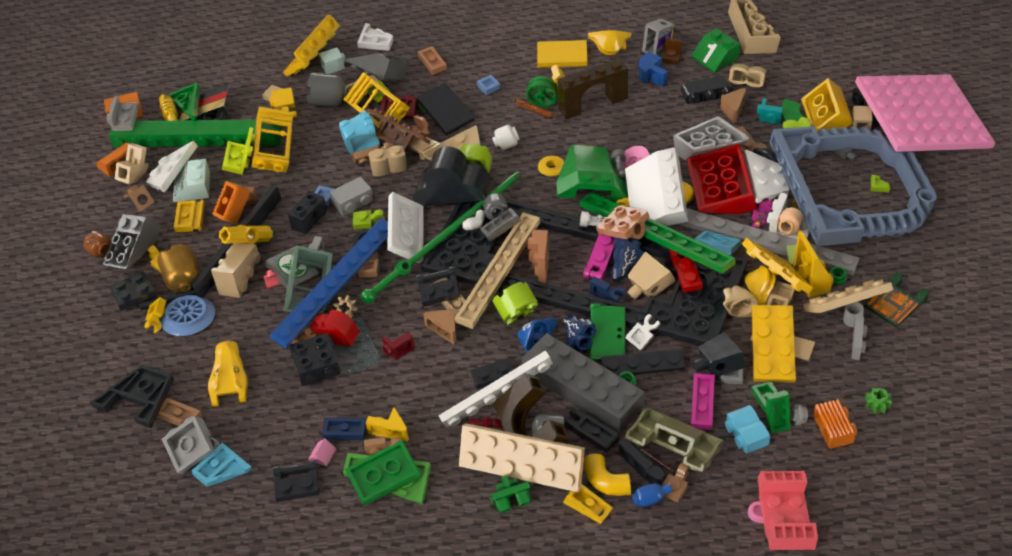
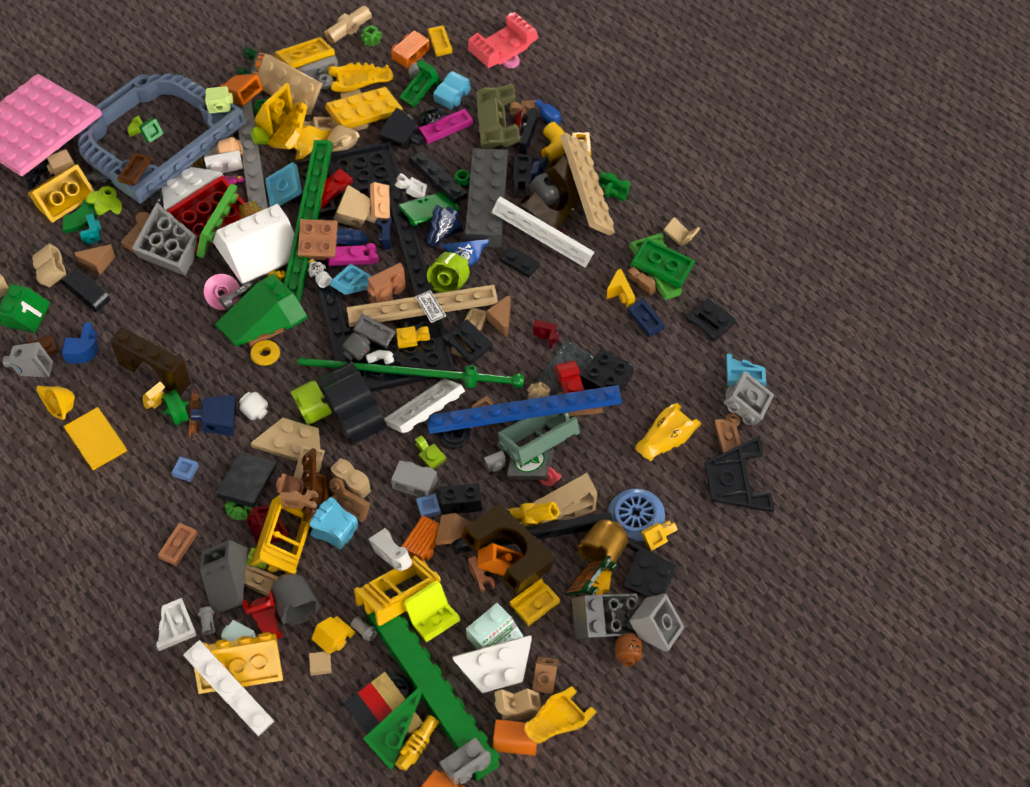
camera: 130 degrees left, 10 degrees up
(92, 266) = (657, 622): none -> light grey slope
(98, 181) = (557, 716): none -> yellow animal
(161, 239) = (588, 575): none -> flag
(251, 208) = (500, 524): none -> dark brown arch
(284, 192) = (450, 528): none -> medium nougat slope
(294, 31) = (228, 688): none -> white bracket
(299, 178) = (422, 539): none -> orange brick
(304, 148) = (390, 552): none -> white leg
(323, 452) = (676, 321): bright pink slope -> none
(340, 65) = (264, 612): none -> red hair
(360, 52) = (206, 615): none -> light grey pin
(384, 101) = (294, 499): none -> medium nougat plate
(407, 516) = (679, 232): none -> tan bracket
(476, 248) = (409, 336): none -> yellow plate
(489, 269) = (430, 306): none -> white sticker
(516, 114) = (217, 415): none -> dark blue torso
(571, 243) = (351, 280): none -> medium azure wing
(581, 439) = (538, 167): none -> dark blue plate
(640, 296) = (380, 201): none -> light nougat plate
(696, 200) = (249, 209): none -> clear yellow plate
(701, 169) = (216, 220): none -> bright green wing
(719, 389) = (431, 116): none -> black gear
(796, 133) = (134, 169): none -> reddish brown plate
(822, 363) = (357, 76): none -> yellow animal
(831, 458) = (439, 41): none -> yellow plate
(838, 340) = (326, 79): none -> light grey plate
(839, 160) = (151, 130): none -> tile
(842, 215) = (218, 99): none -> yellowish green brick
(865, 259) = (243, 88): none -> orange torso
(887, 333) = (305, 53): none -> yellow tile
(911, 390) = (348, 24): none -> tan piece

